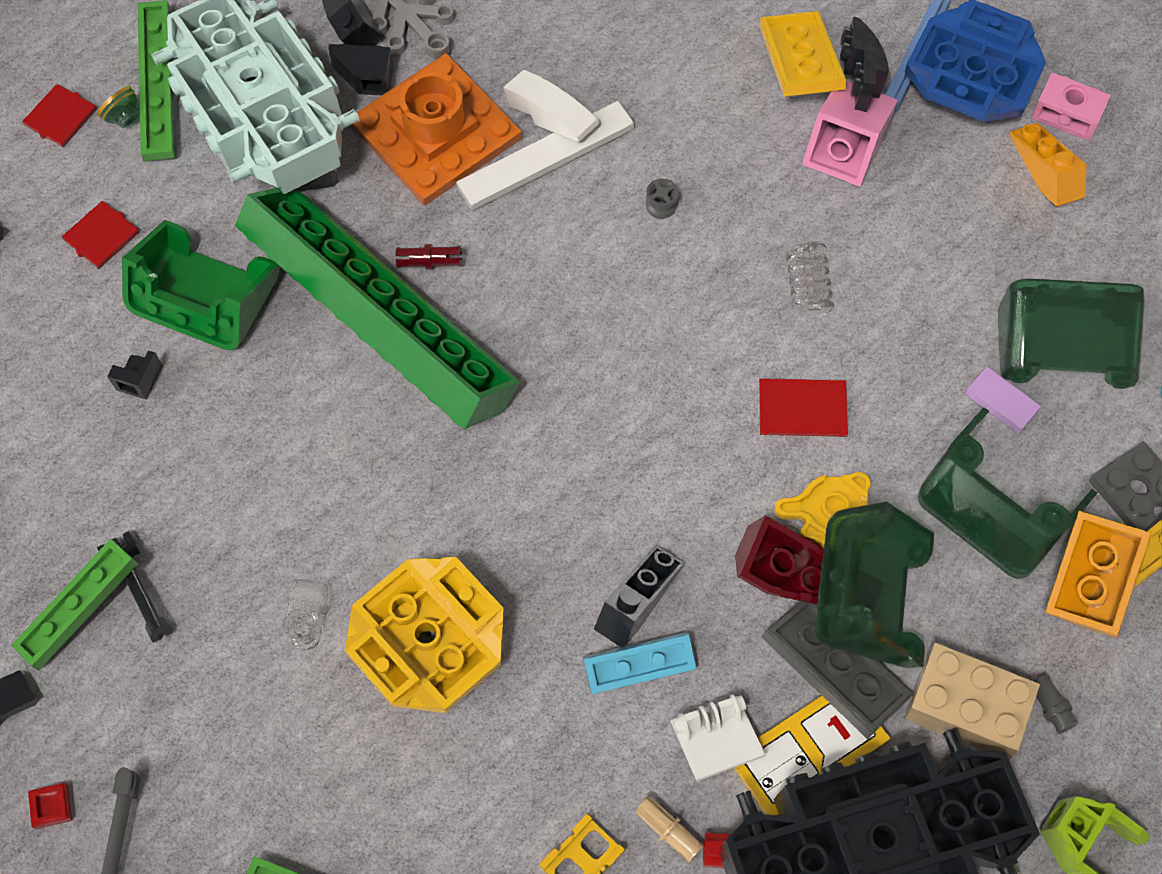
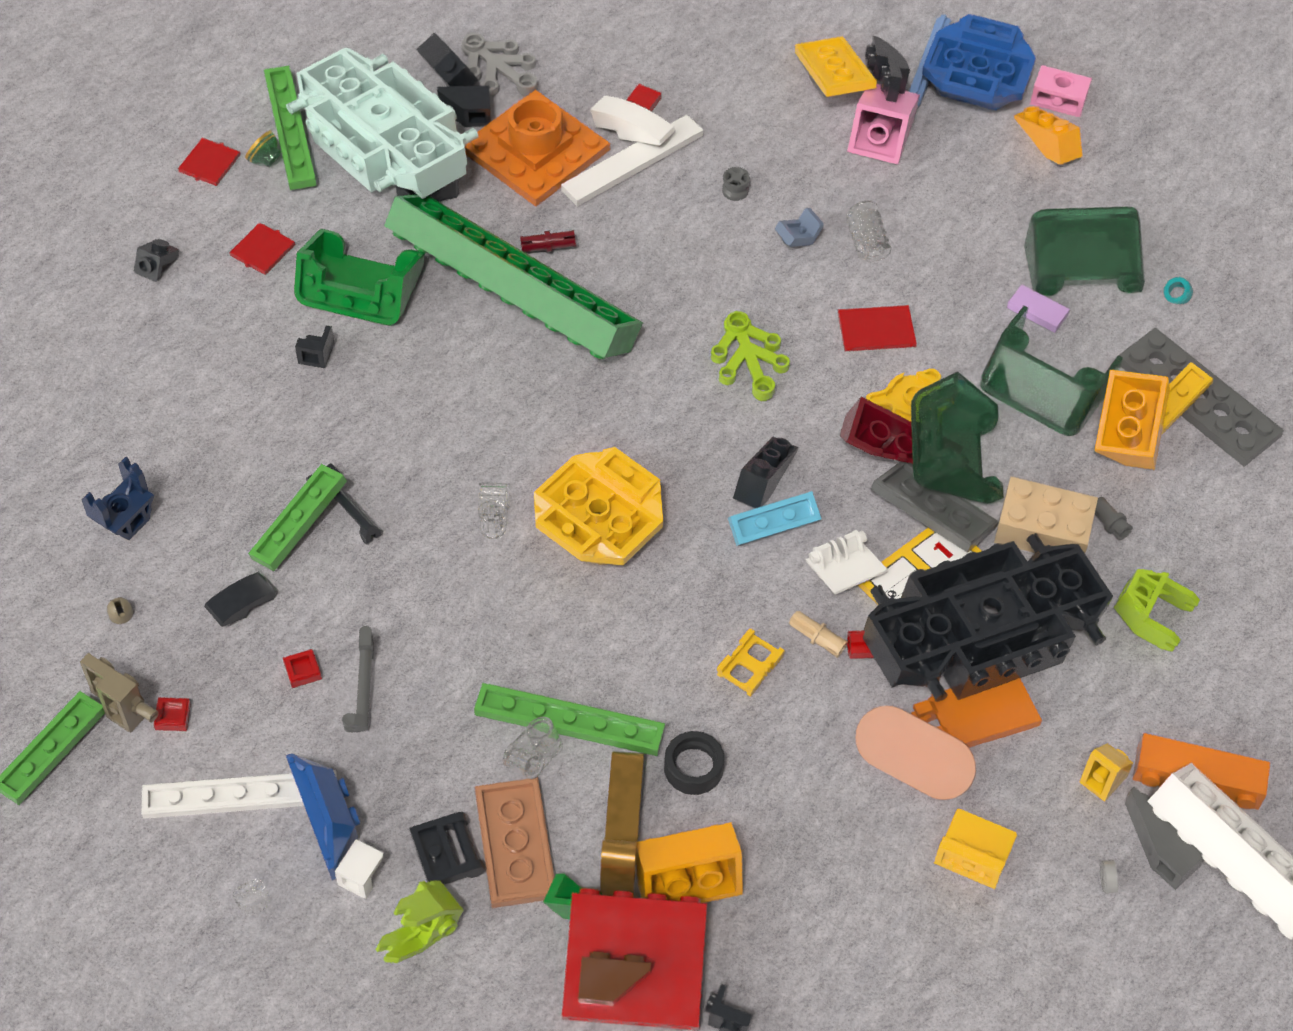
camera: 10 degrees left, 10 degrees down
(571, 75) = (645, 97): none -> red tile
(644, 428) = (739, 327): none -> lime plant
(728, 269) = (800, 231): none -> sand blue bracket

